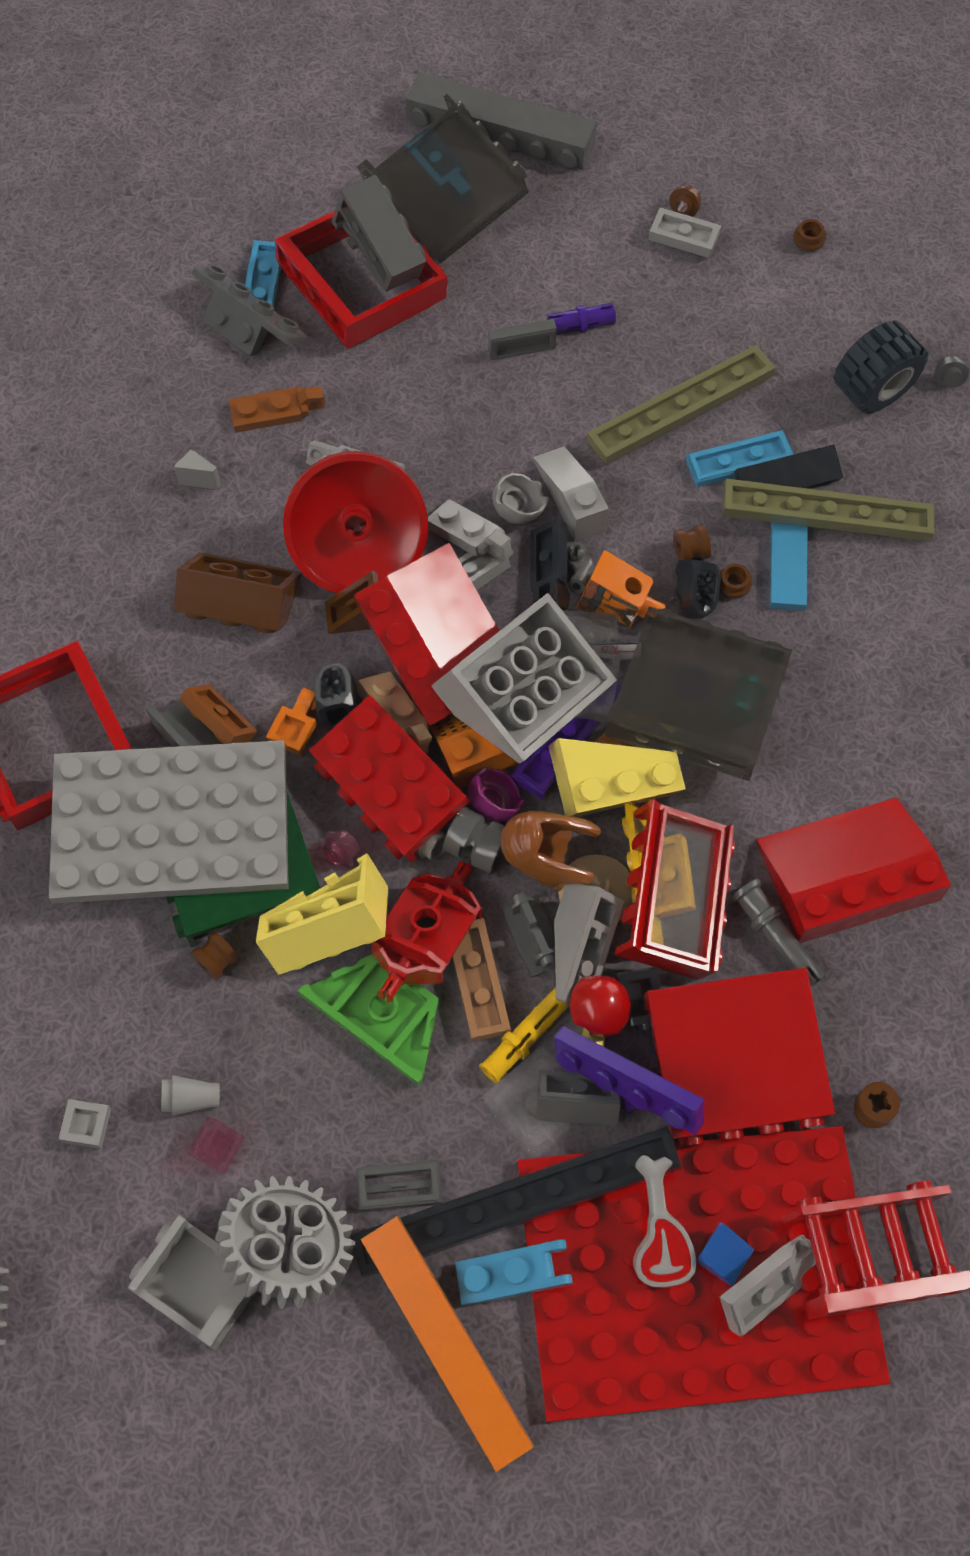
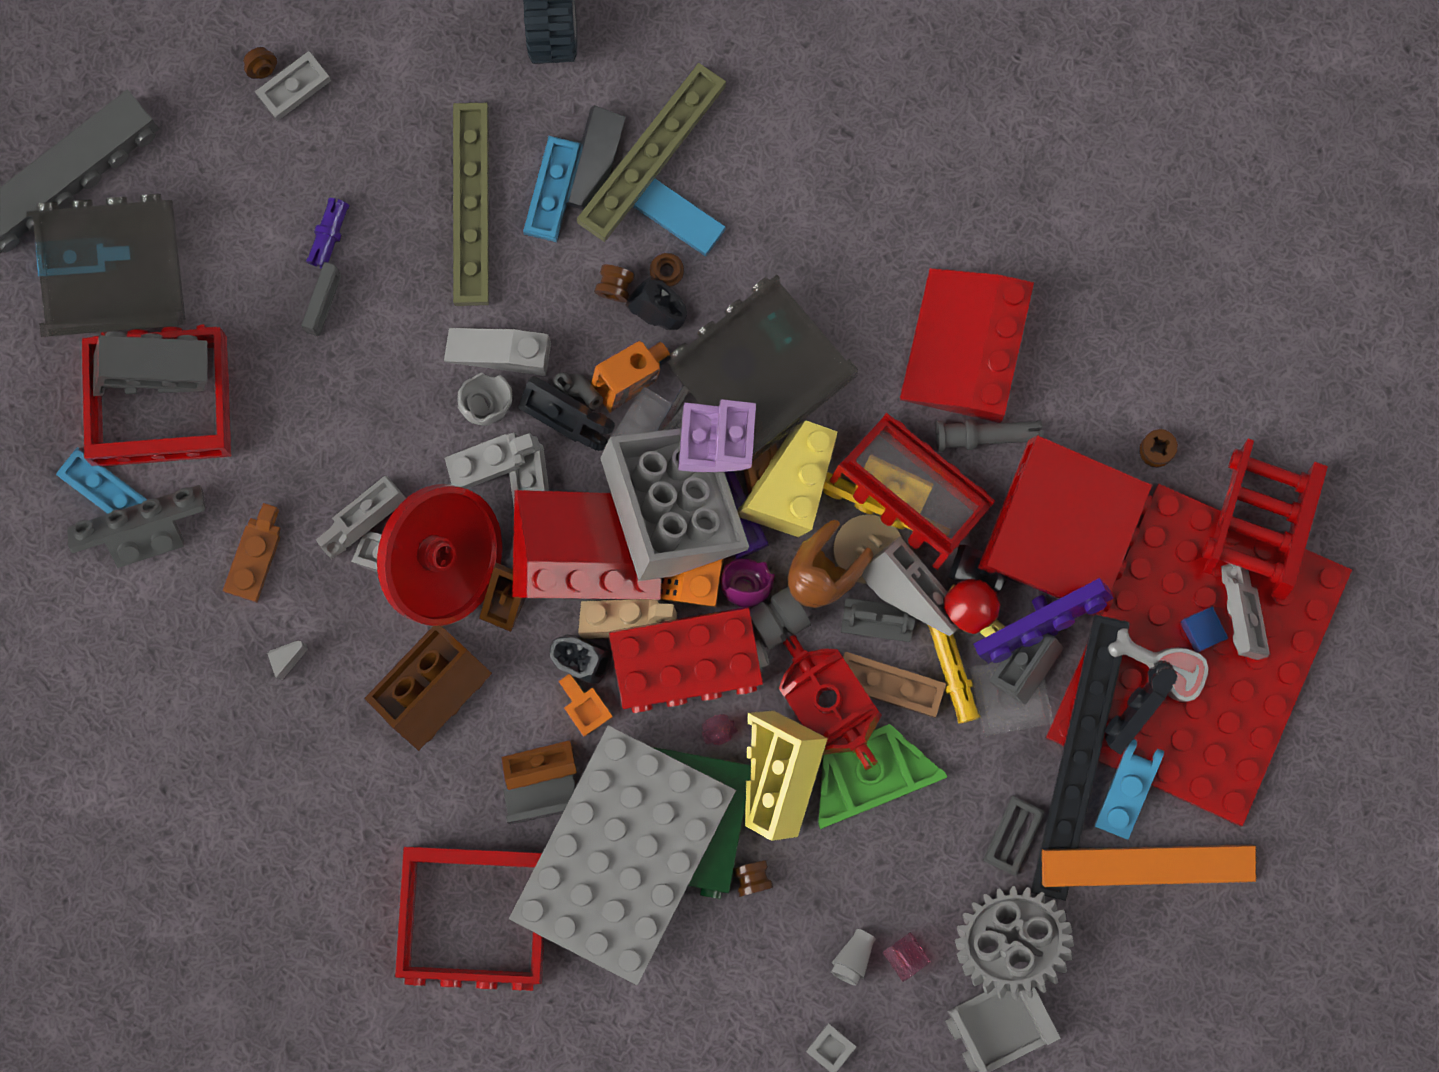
camera: 55 degrees left, 15 degrees up
(604, 1226) = (1141, 706): none -> black hinge
(607, 681) = (717, 437): none -> lavender slope

